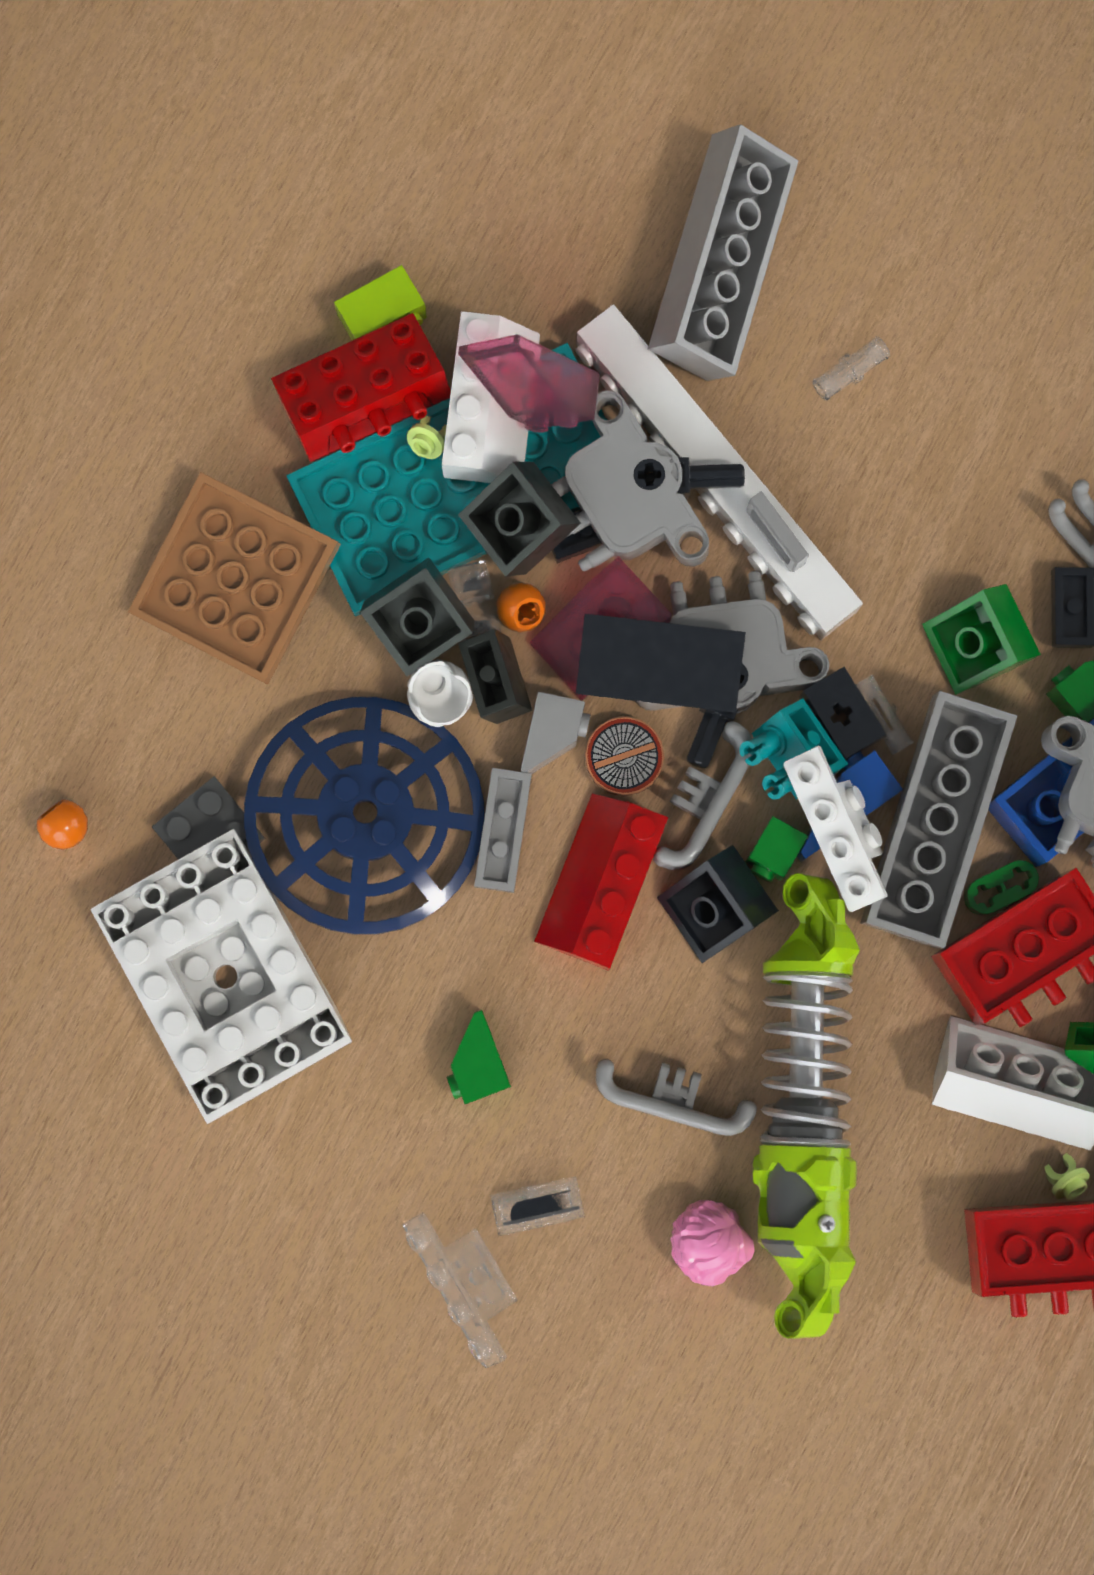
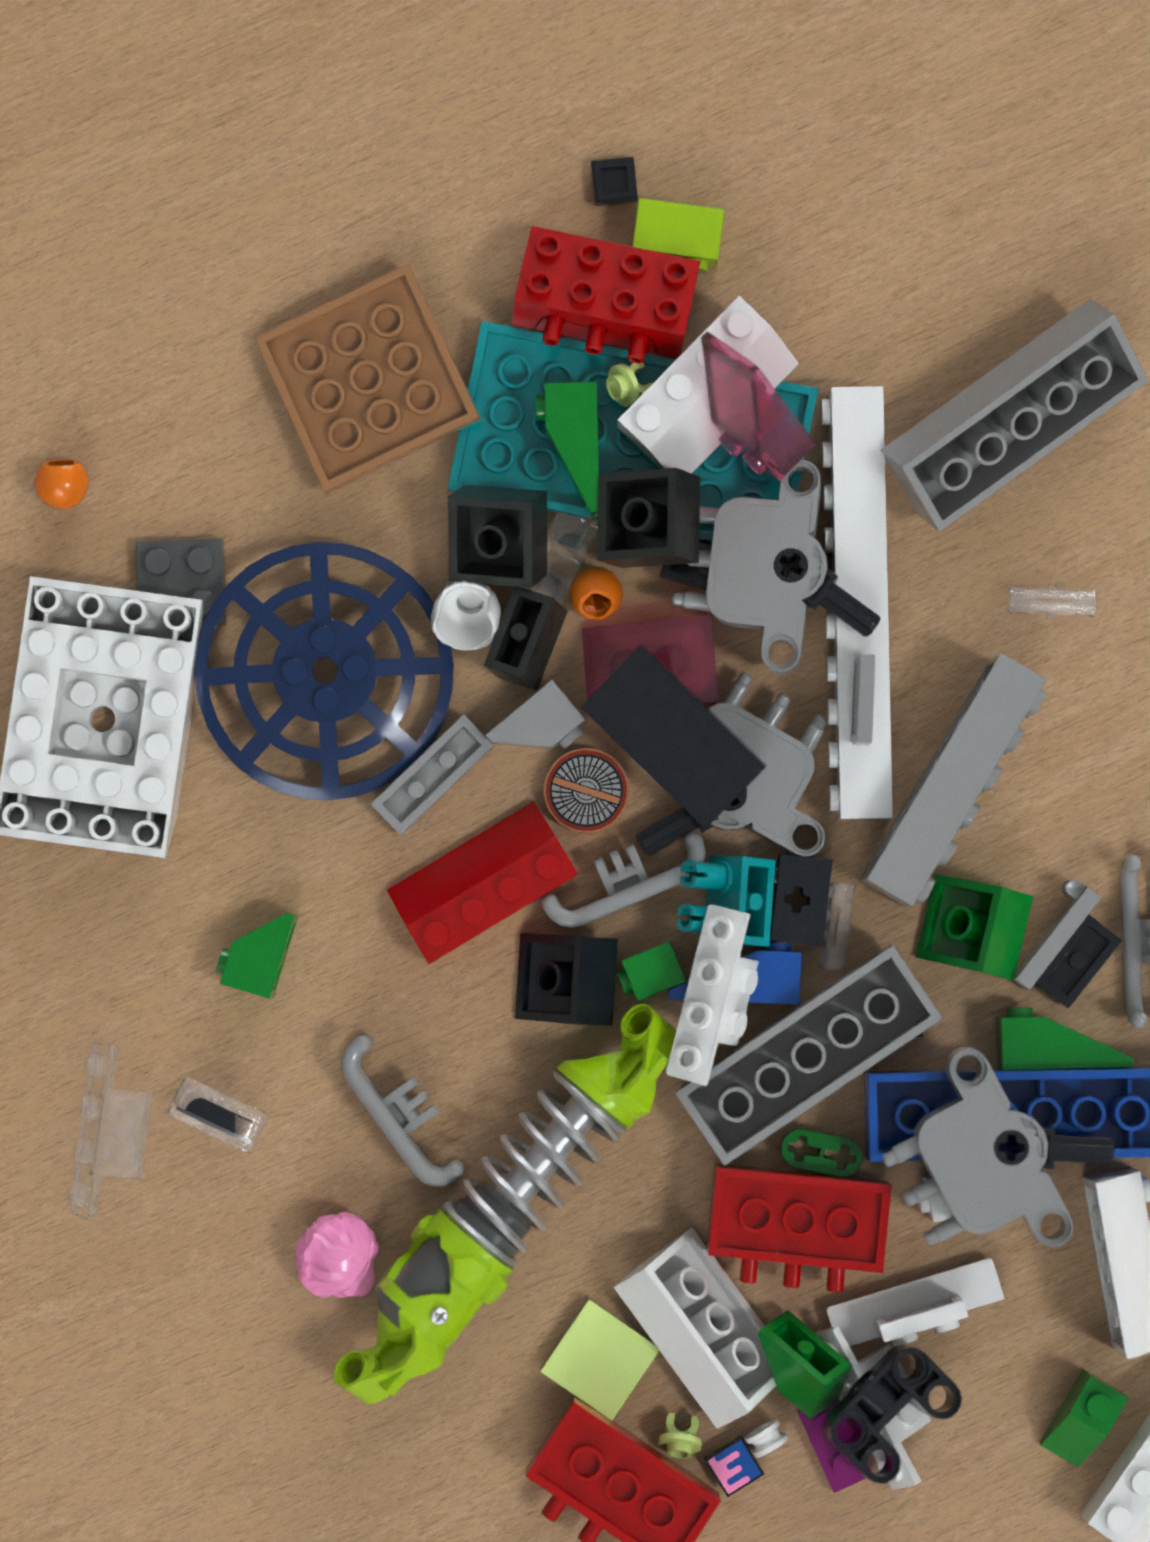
camera: 40 degrees right, 5 degrees up
(306, 309) = (614, 181): none -> black tile
(417, 503) = (573, 431): none -> green slope
(886, 543) = (953, 781): none -> light grey brick
(962, 1167) = (600, 1359): none -> yellowish green tile
(1045, 597) = (1081, 904): none -> light grey hinge

